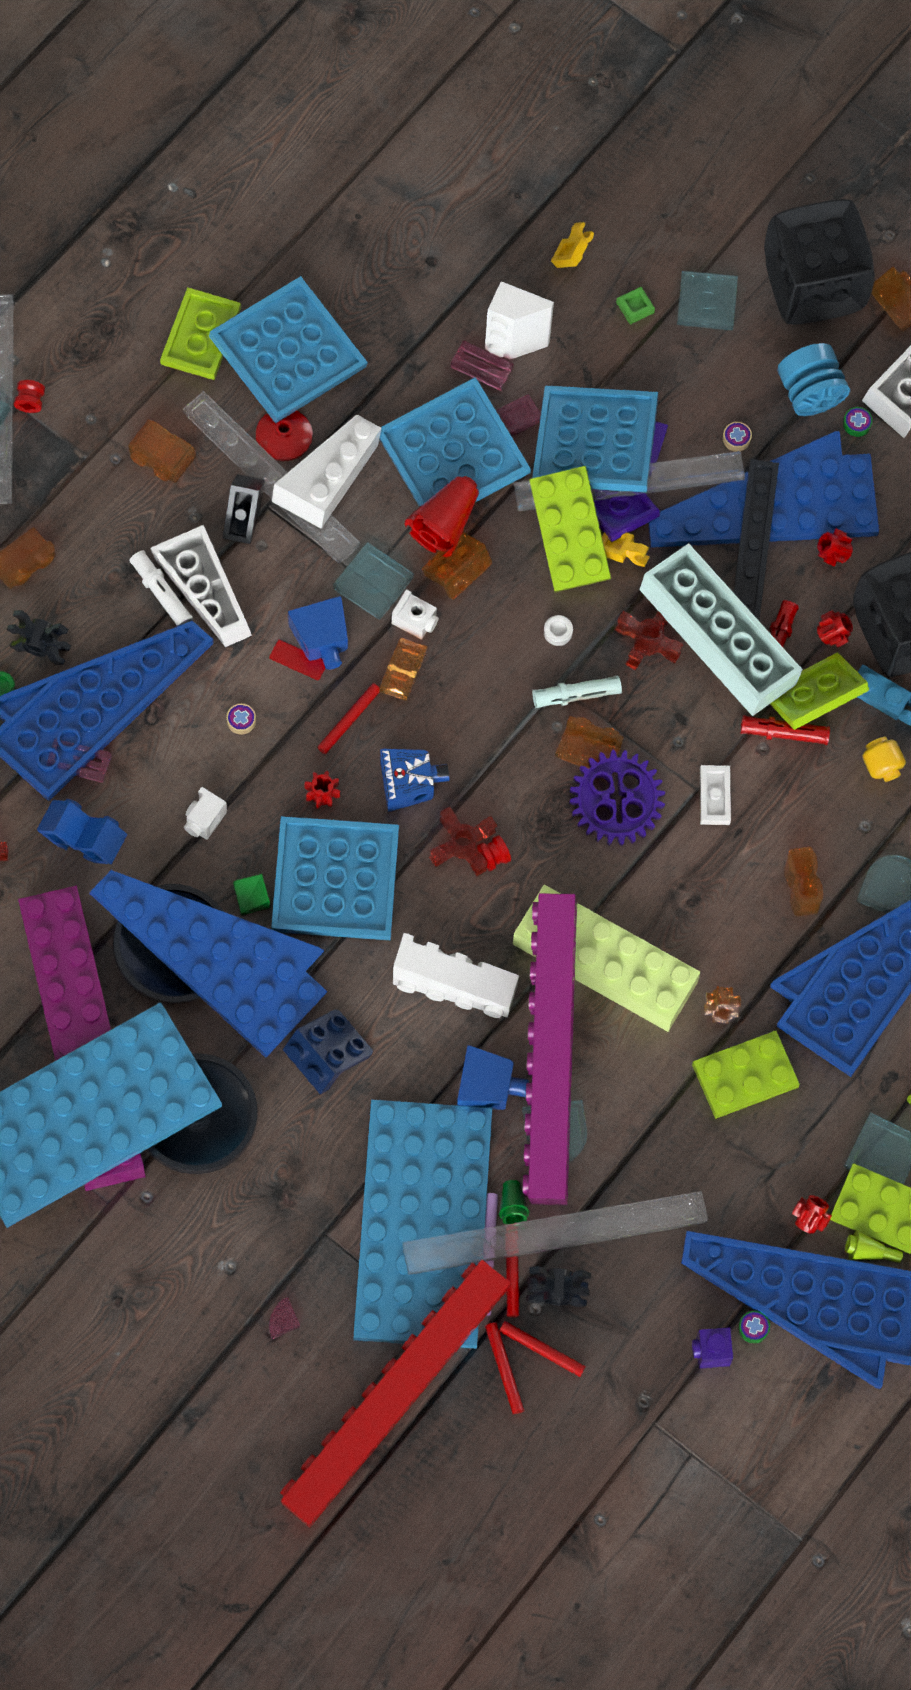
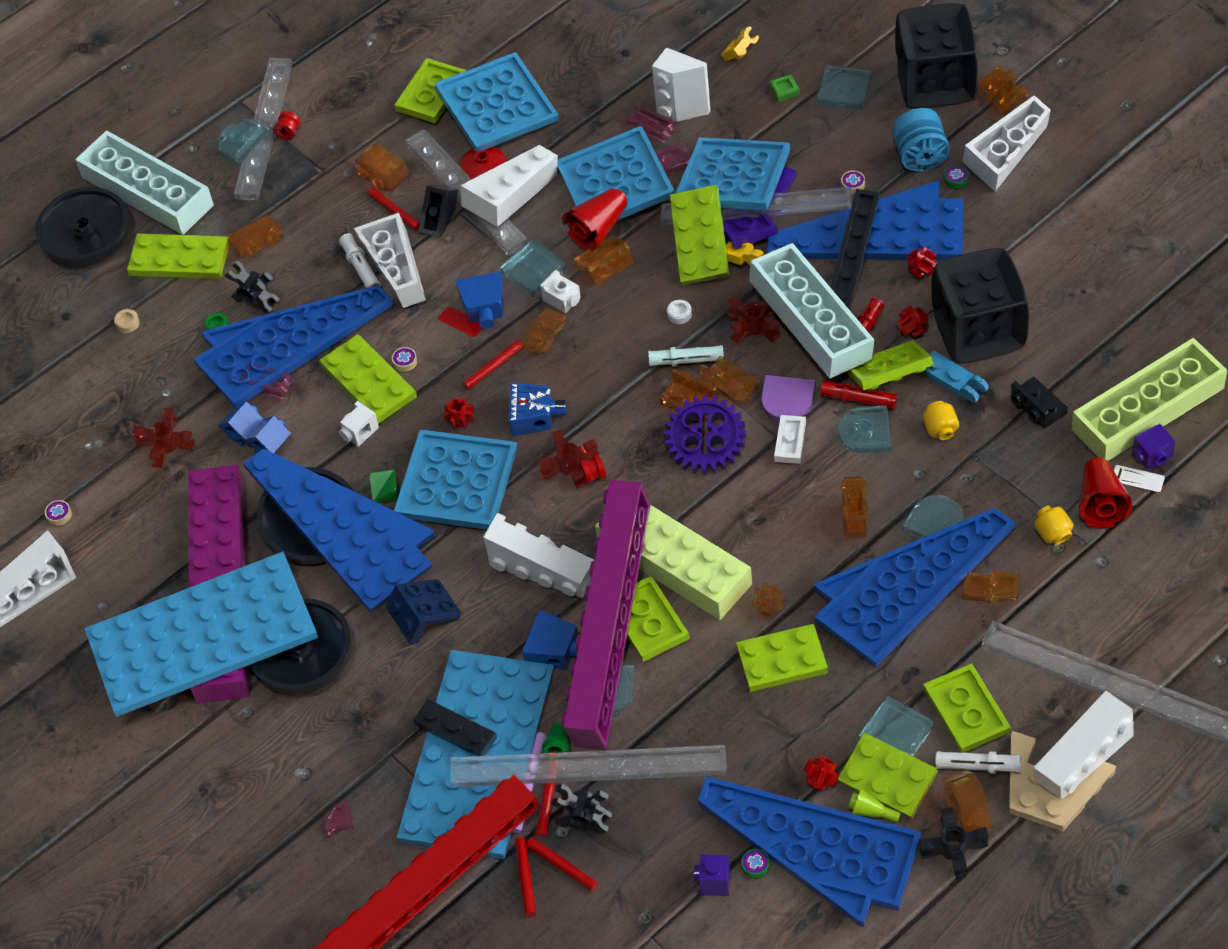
camera: 20 degrees right, 15 degrees down
(187, 507) = (393, 208): none -> red bar
(201, 747) = (368, 377): none -> lime plate
(397, 1201) = (455, 728): none -> black plate
(598, 1045) = (653, 622): none -> lime plate
(634, 721) = (730, 379): none -> clear orange bracket
(702, 738) = (787, 396): none -> medium lavender tile
(798, 774) = (866, 430): none -> clear light blue tile

